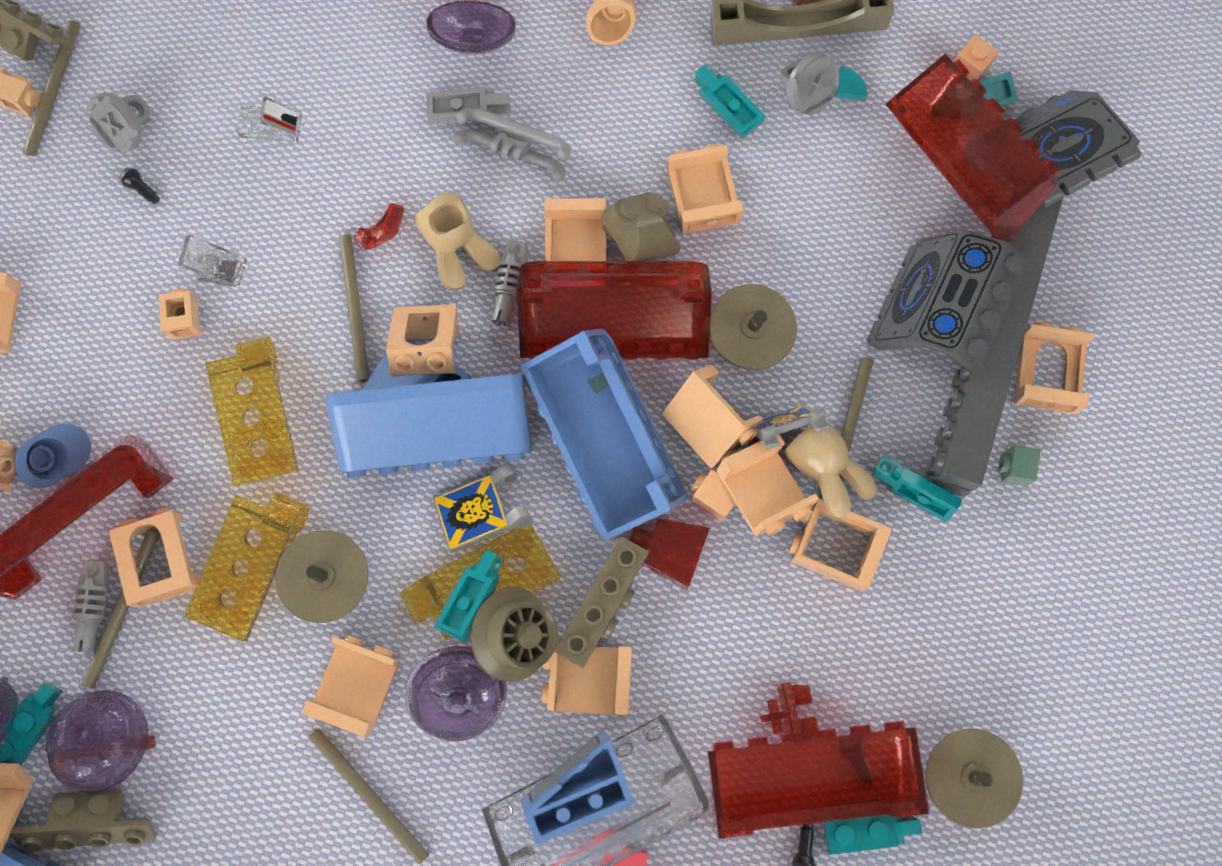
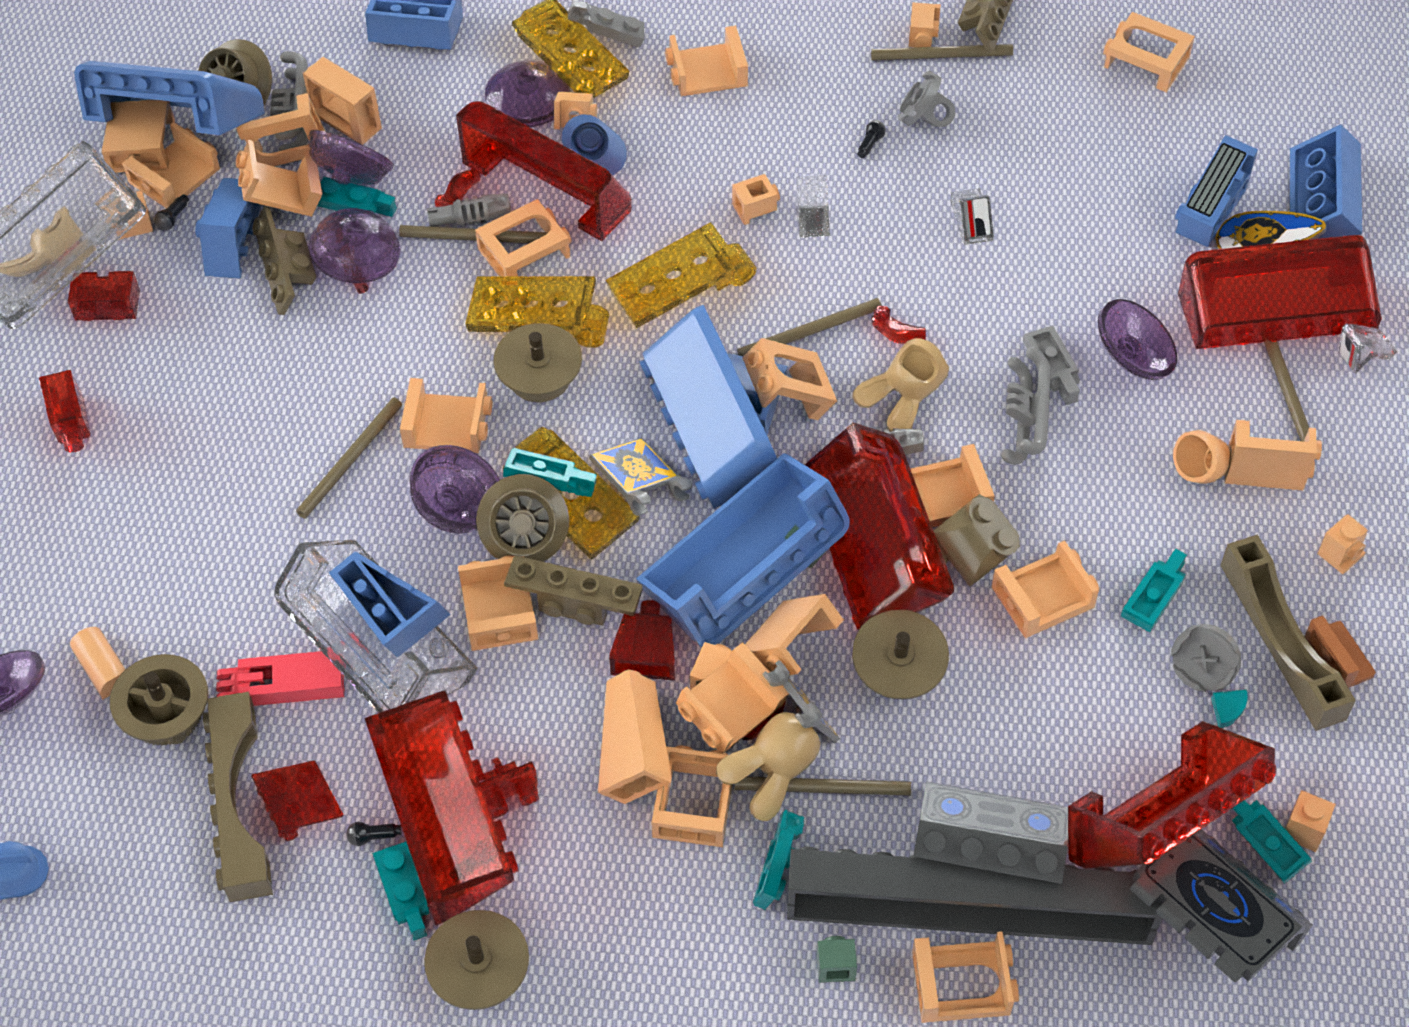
camera: 75 degrees right, 20 degrees down
(54, 611) = (458, 187): none -> clear red arm
(776, 584) = (632, 739): none -> light nougat slope

